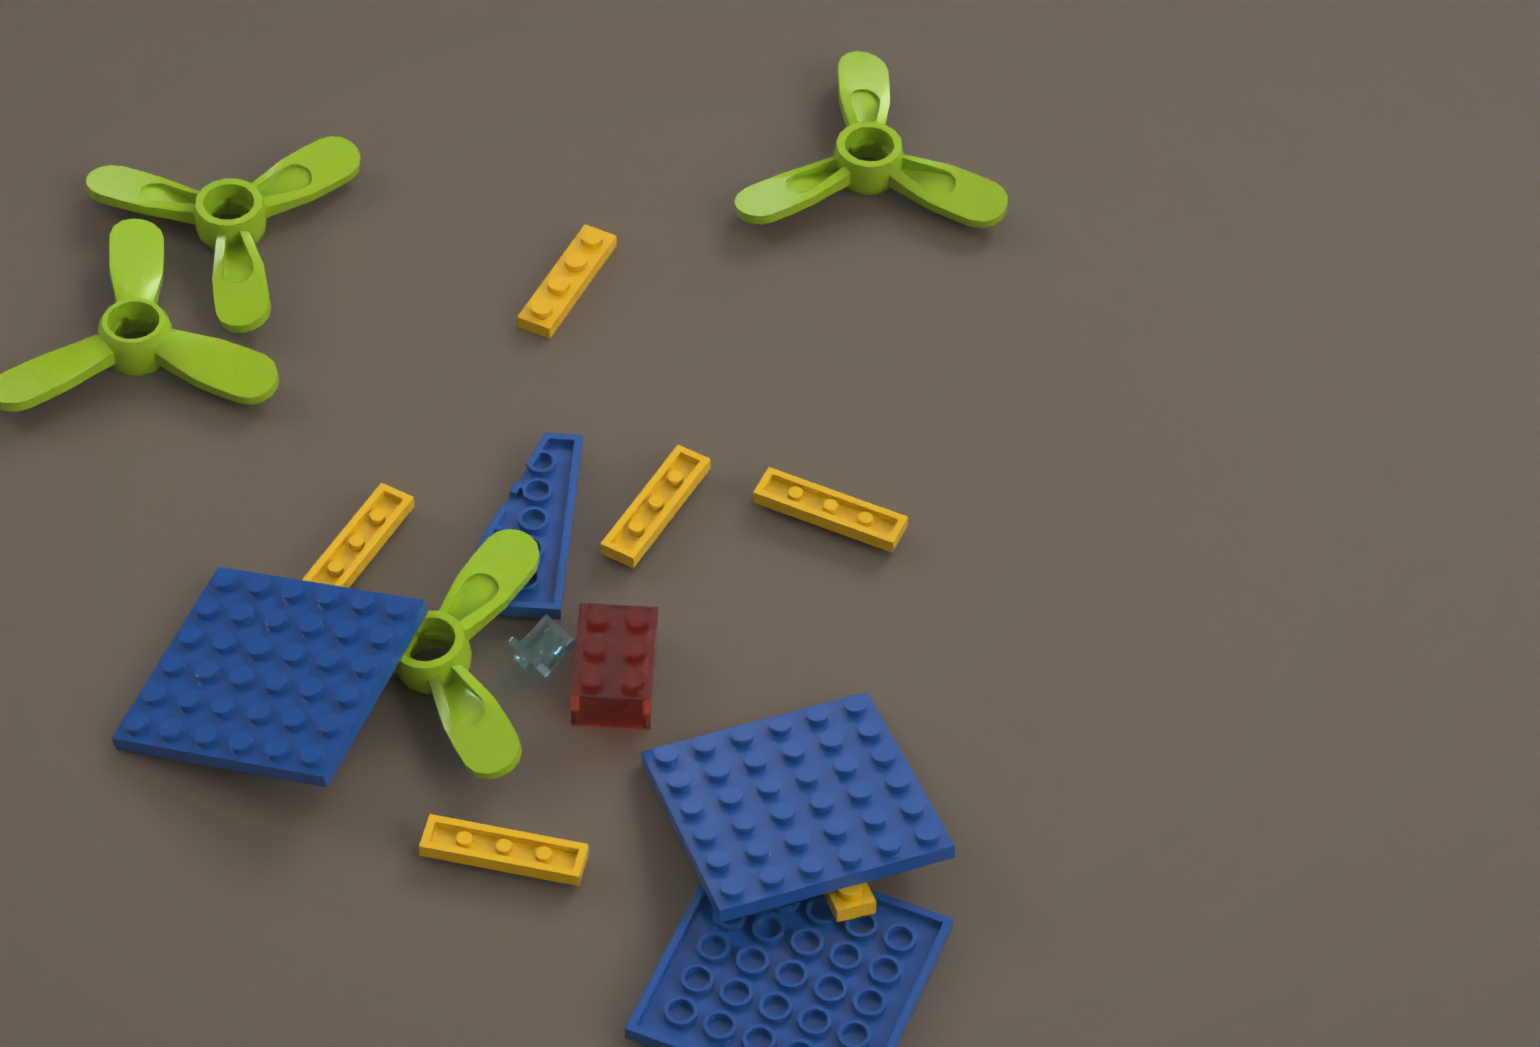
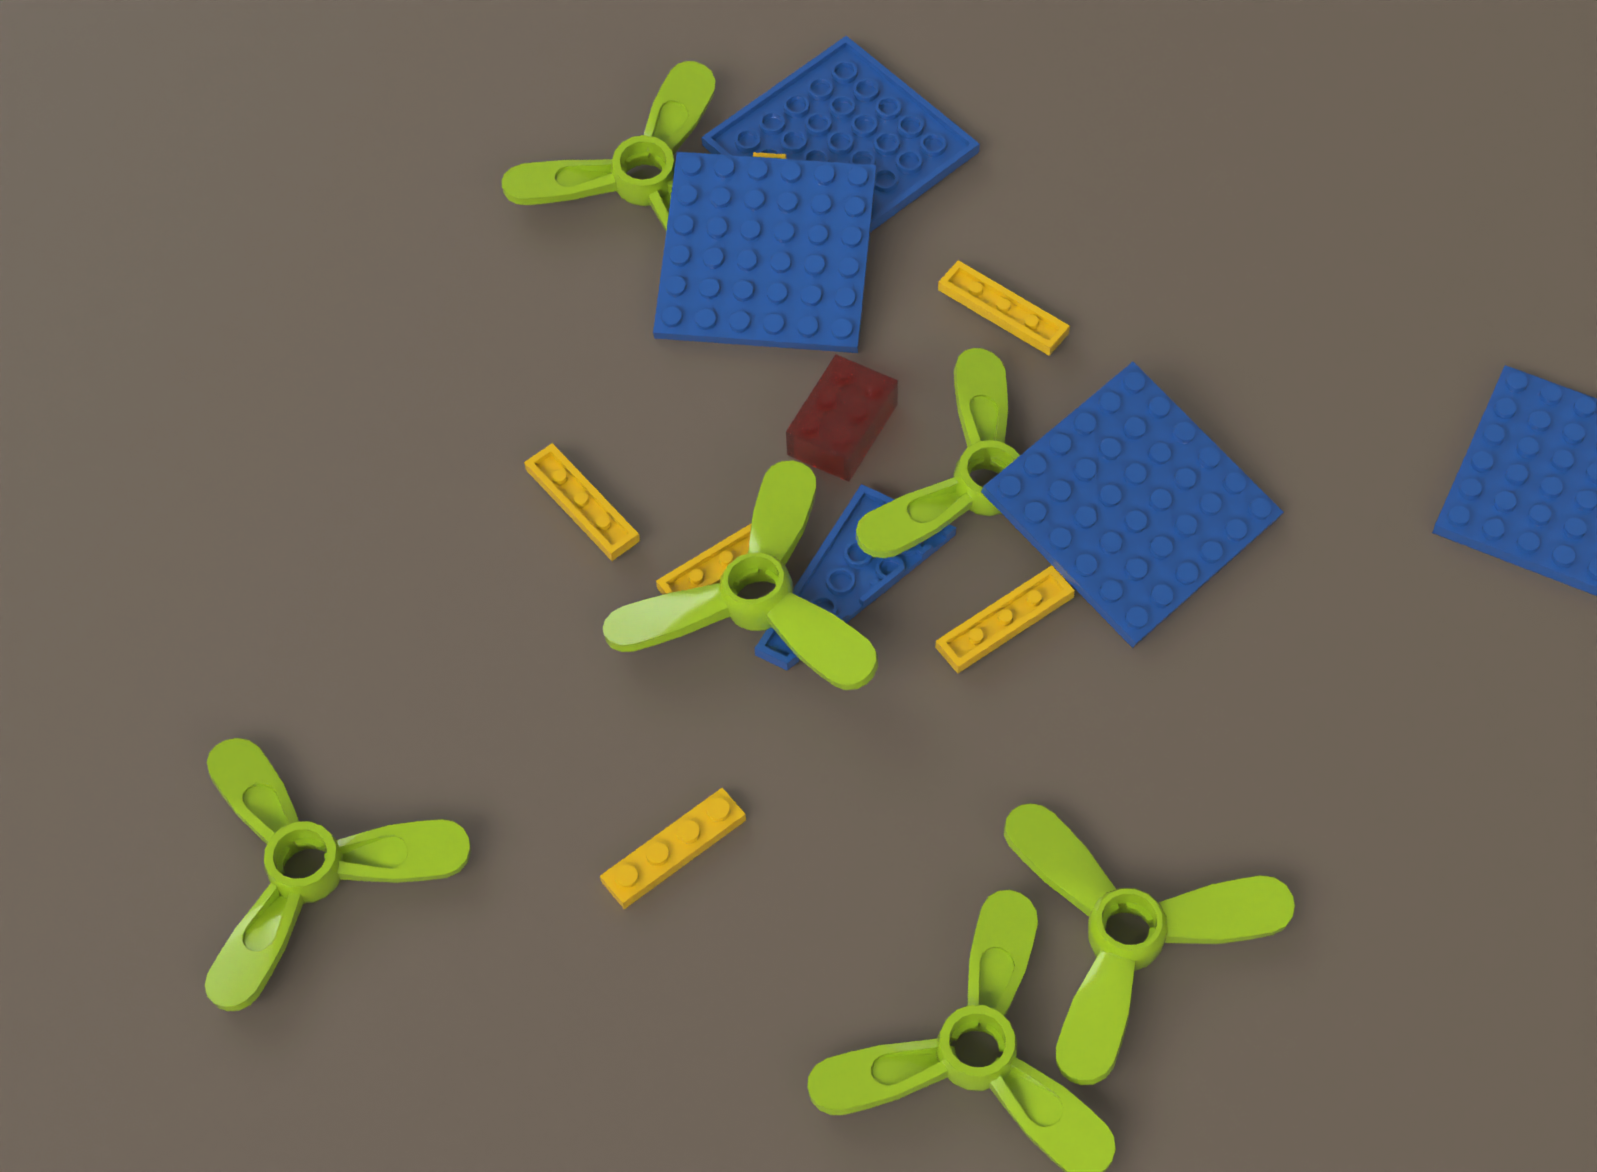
camera: 150 degrees left, 10 degrees up
(542, 646) = (893, 461): clear light blue bracket -> none
(617, 525) = (810, 631): none -> lime piece
(998, 918) = (670, 122): none -> lime piece

